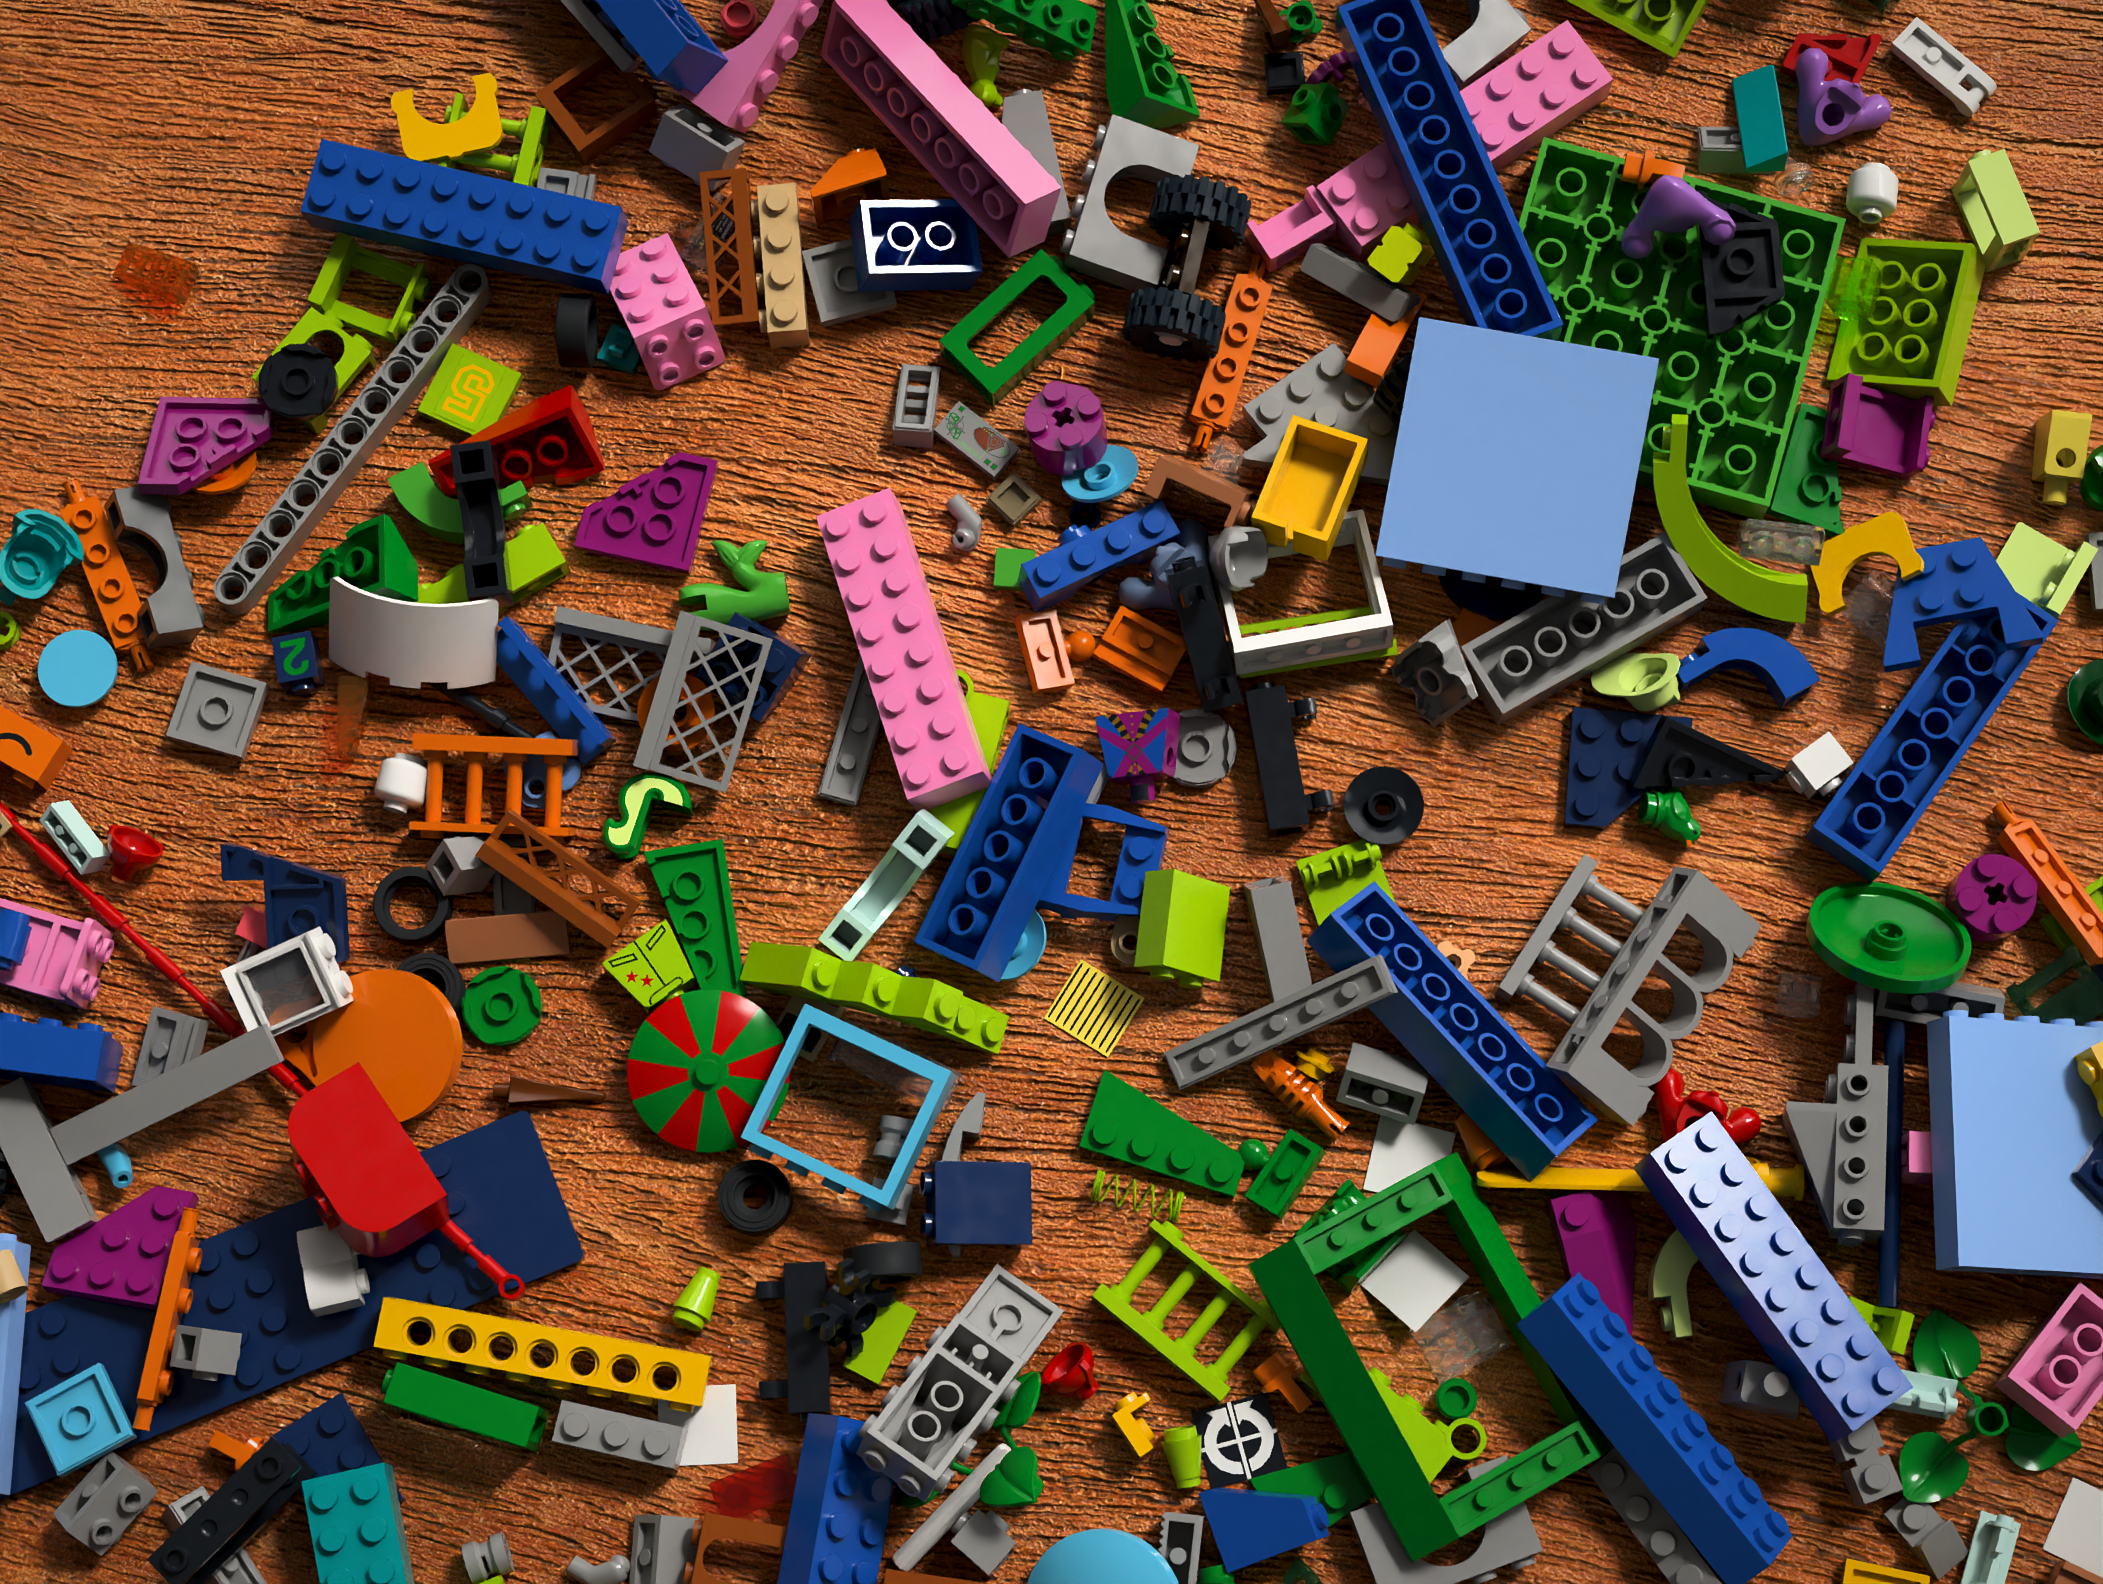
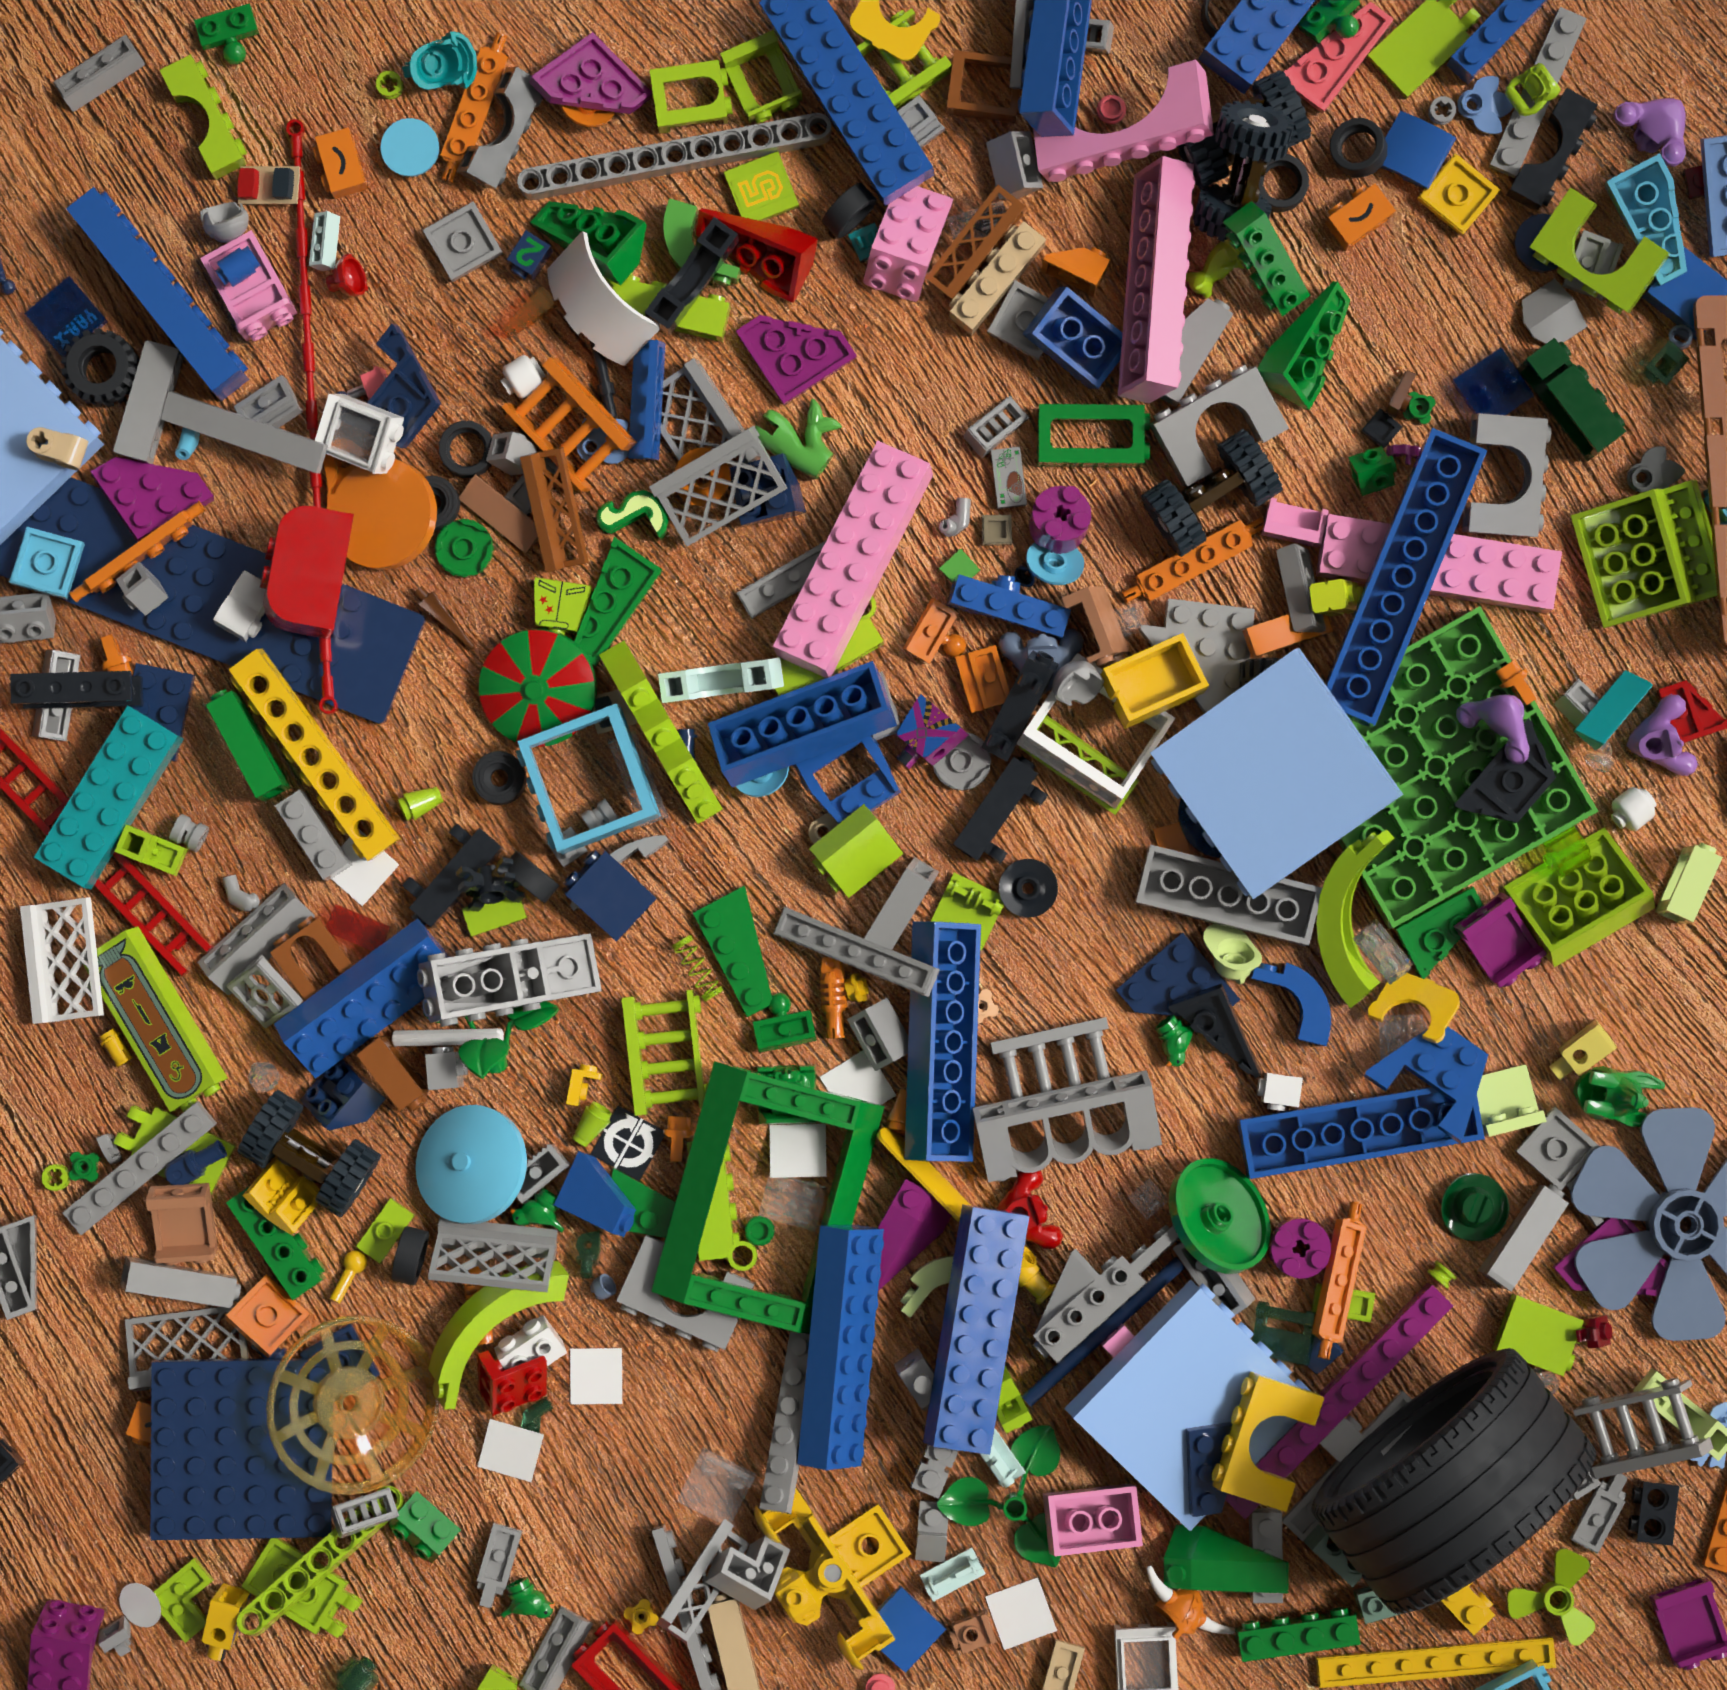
camera: 45 degrees right, 10 degrees up
(298, 382) = (671, 98): black tile -> none
(1071, 1372) = (574, 1025): red piece -> none
(1094, 1008) = (772, 847): light yellow sticker -> none
(1436, 674) = (1125, 844): light grey slope -> none

